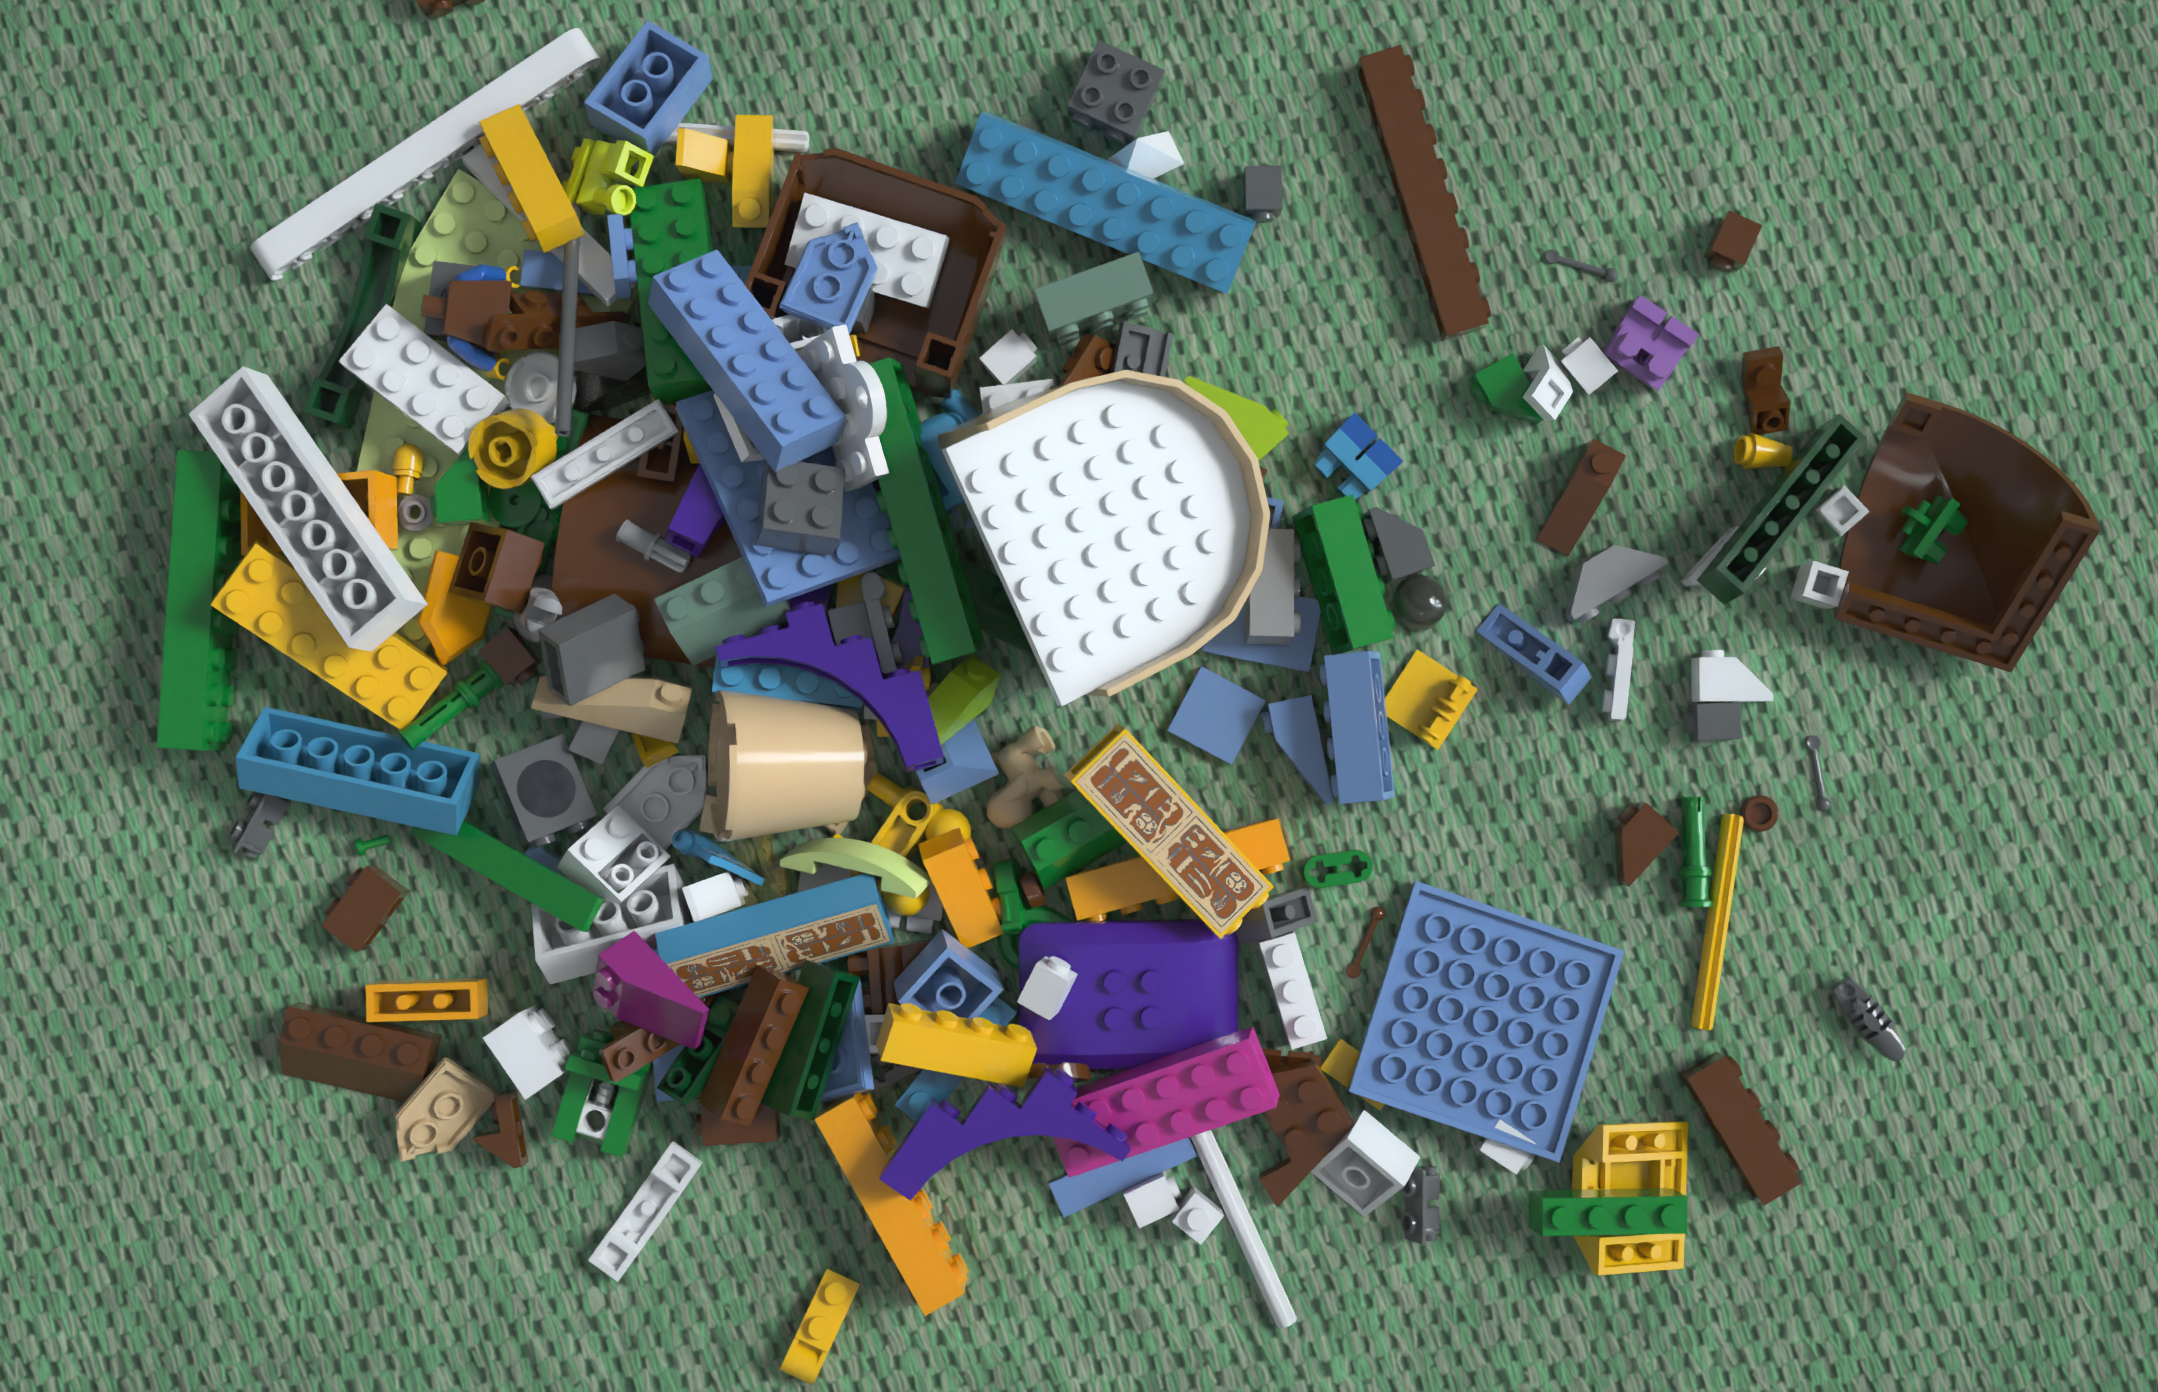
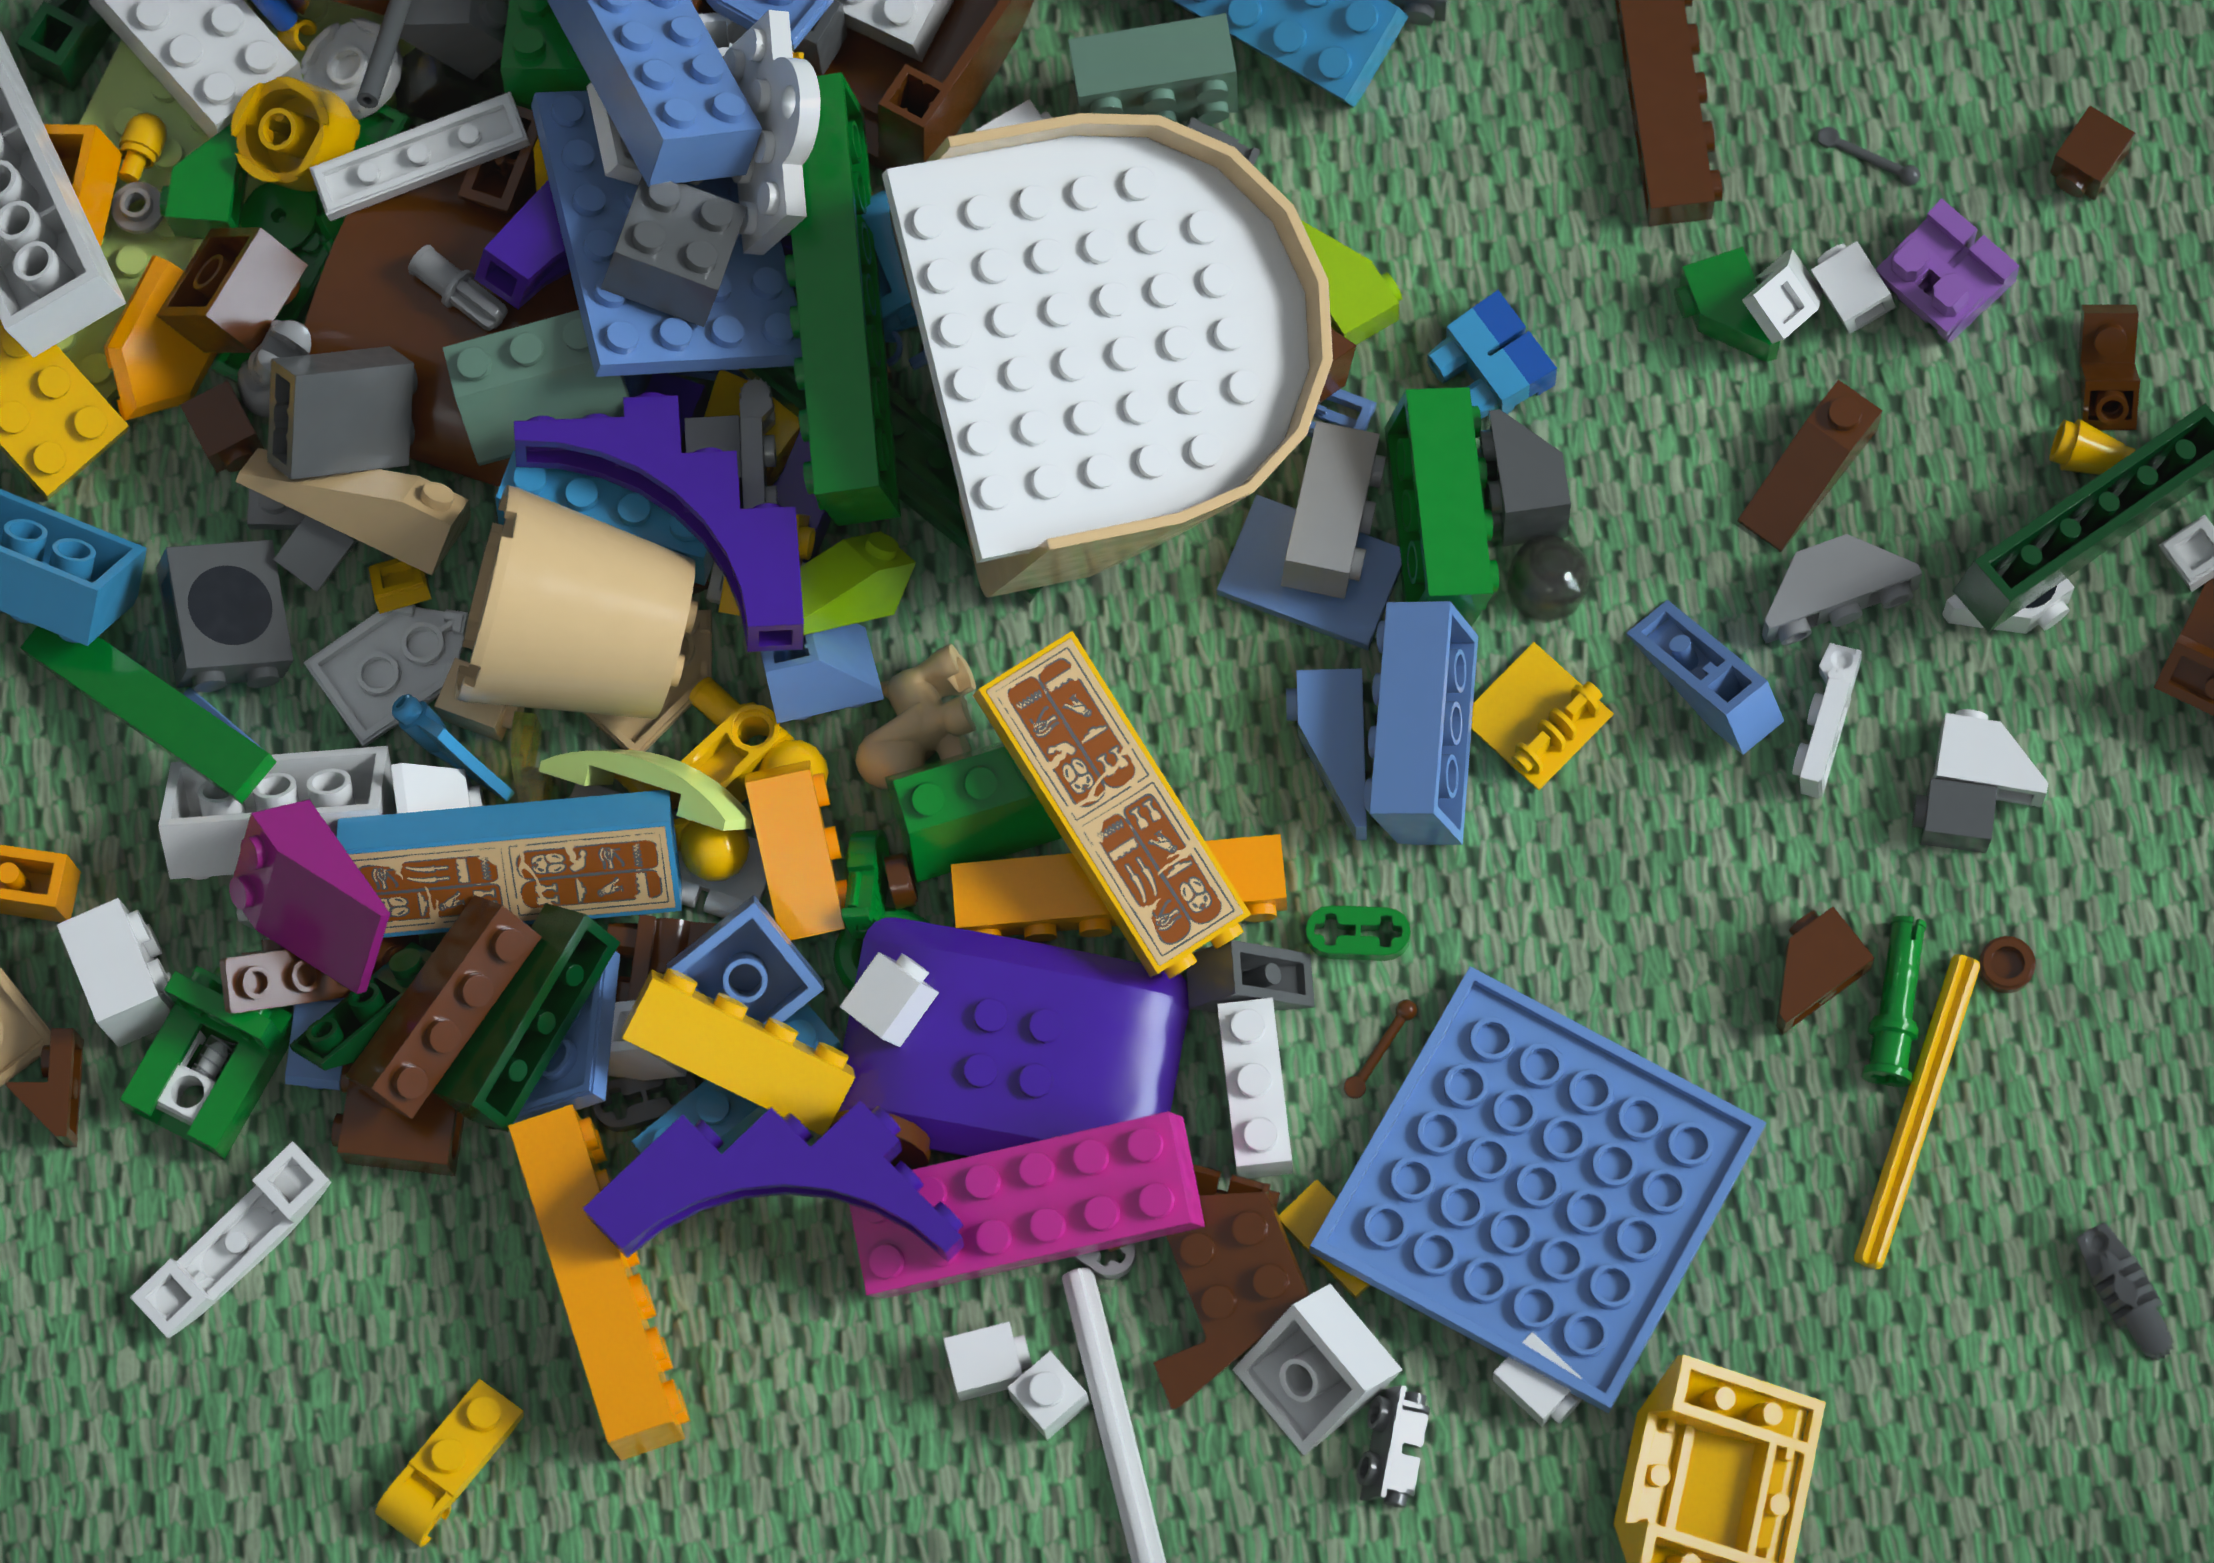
camera: 25 degrees right, 15 degrees down
(464, 695) = (143, 467): green pin -> none
(613, 857) = (302, 713): white slope -> none
(1095, 1185) = (923, 1319): medium blue tile -> none
(1216, 715) = (1220, 685): medium blue tile -> none
(1607, 1212) = (1669, 1488): green brick -> none
(1740, 1127) = (1902, 1419): reddish brown brick -> none
(1813, 744) = (2105, 879): dark grey hinge -> none
(1819, 585) = (2143, 644): white brick -> none

